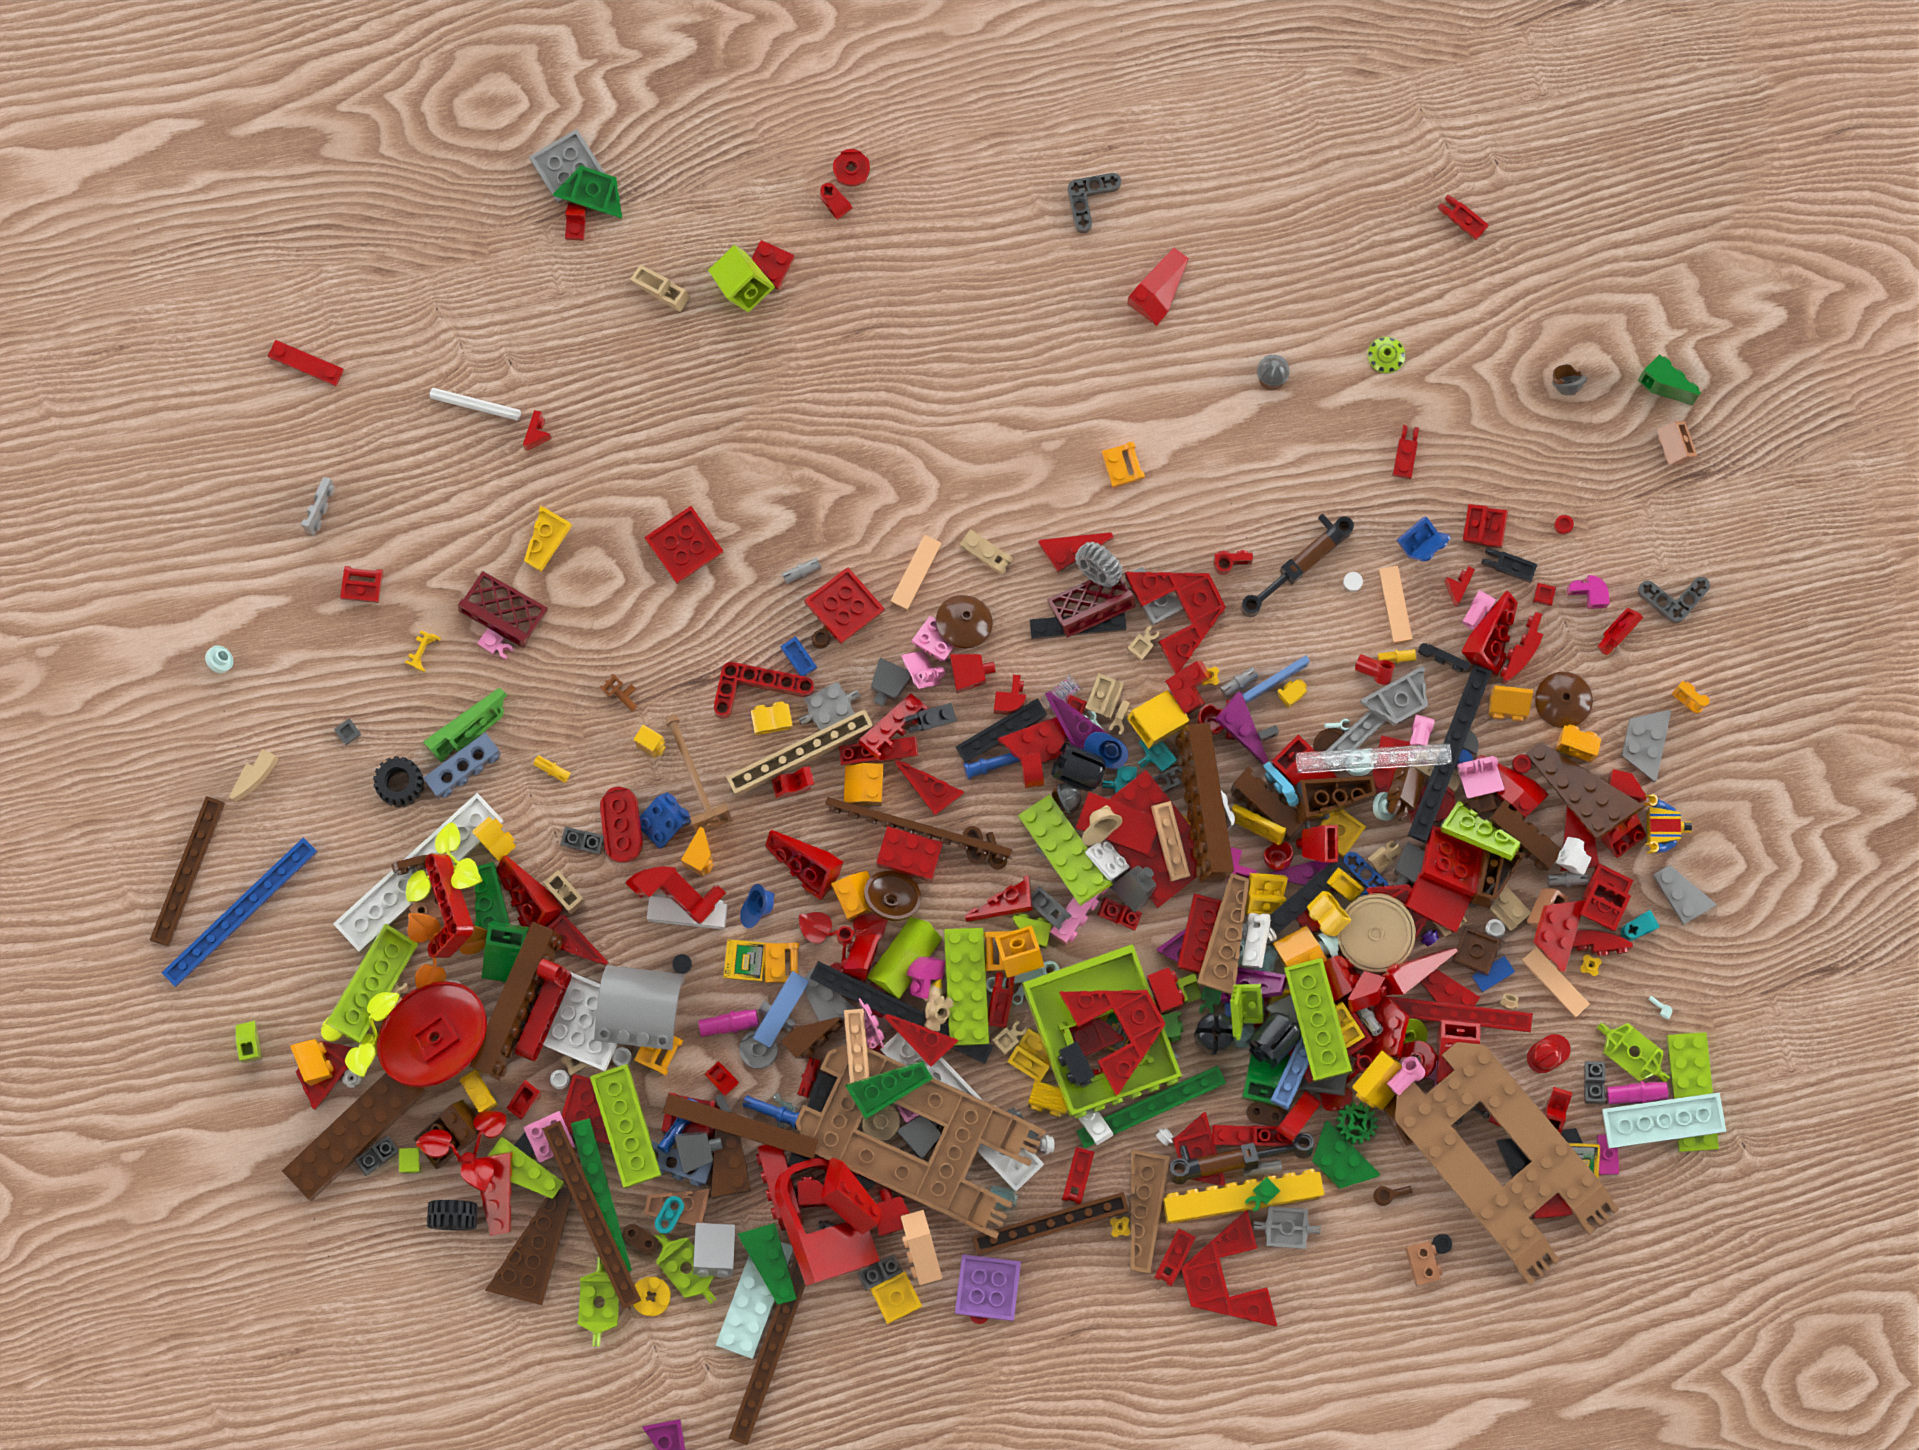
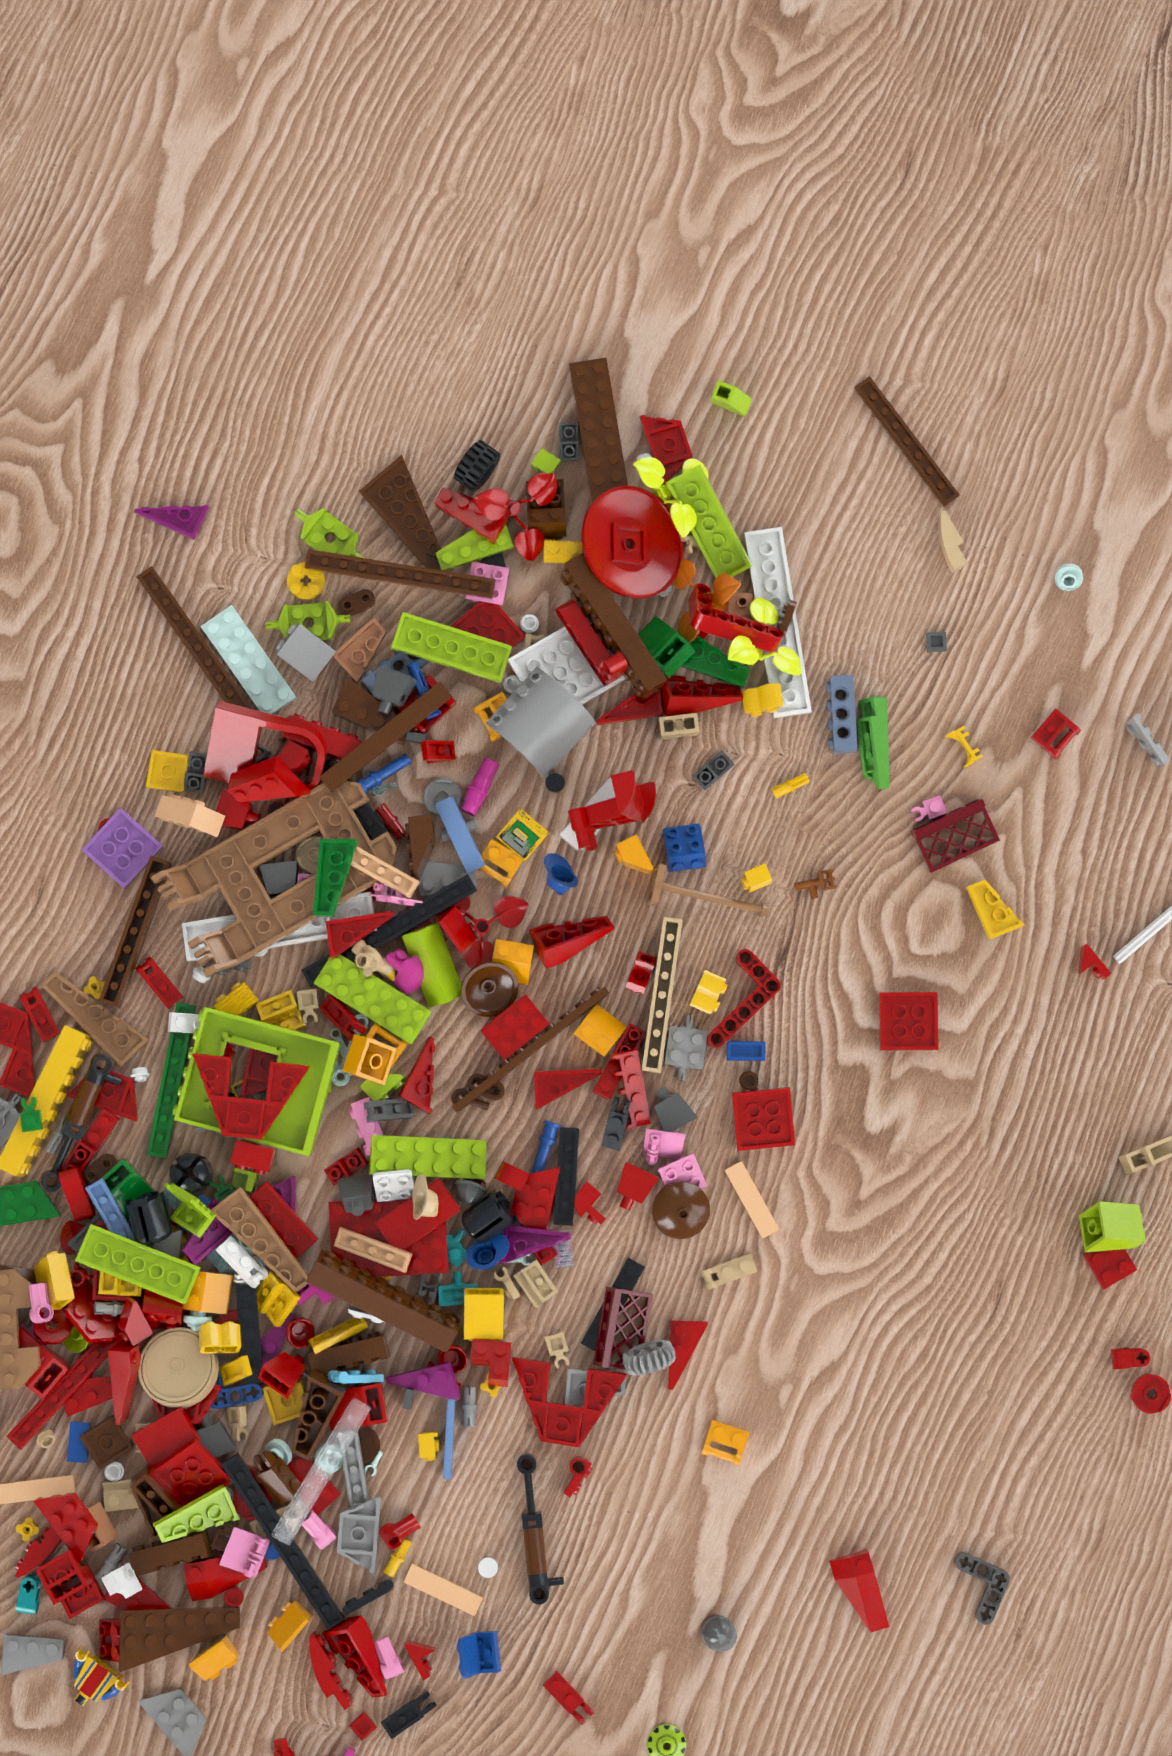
camera: 125 degrees right, 5 degrees up
(239, 912) = (843, 461): blue plate -> none
(312, 1061) = (677, 435): light orange slope -> none
(394, 766) = (864, 638): black tyre -> none
(523, 1099) = (531, 583): red slope -> none
(597, 1179) = (422, 597): green plate -> none
(621, 824) = (704, 810): red tile -> none
(670, 1215) = (357, 636): teal plate -> none
(768, 1257) = (270, 691): green wing -> none
(801, 570) = (819, 1104): light grey pin -> none
(1005, 1193) = (185, 912): clear light blue brick -> none
(1076, 1064) = (240, 1038): black brick -> none
(1173, 1027) = (222, 1143): bright green brick -> none
(1353, 1116) = (39, 1229): green gear -> none
(1429, 937) = (145, 1410): dark purple plate -> none
(1471, 743) = (280, 1567): dark grey tile -> none
(1485, 526) = (457, 1718): red slope -> none
(1563, 712) = (267, 1661): reddish brown dish -> none
(1627, 784) = (151, 1672): red slope -> none

